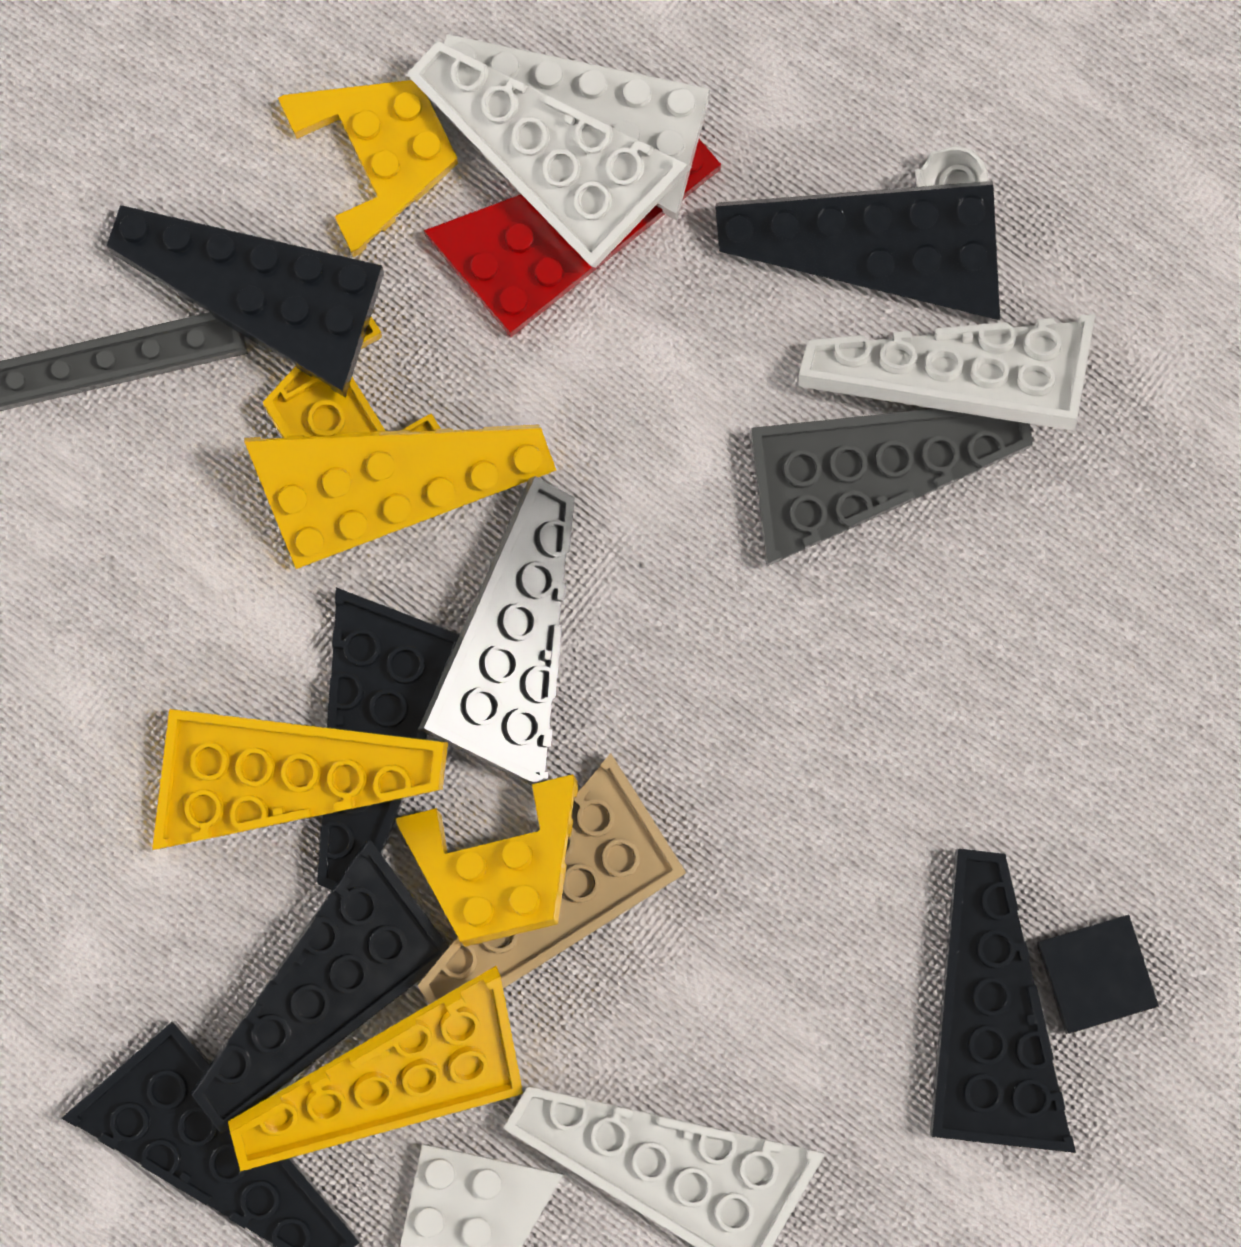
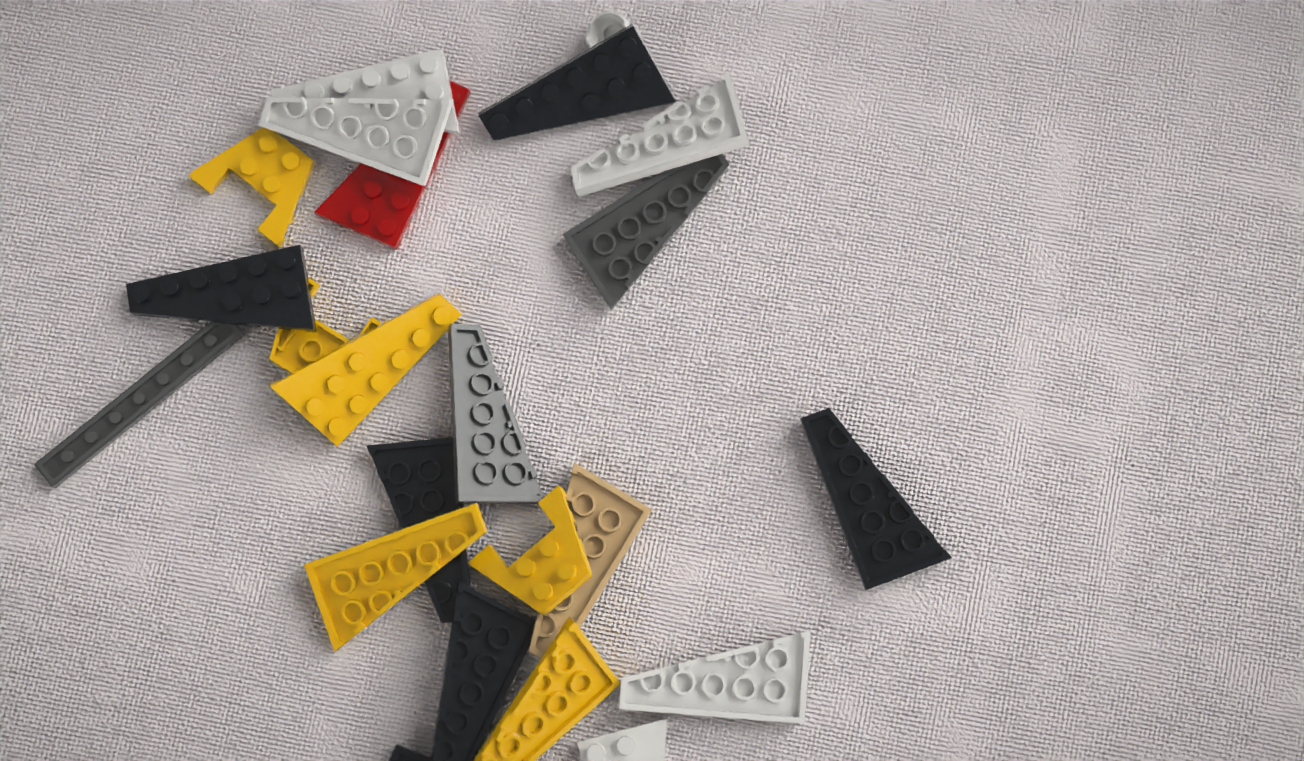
camera: 25 degrees left, 0 degrees up
(1097, 974) = (915, 450): black tile -> none

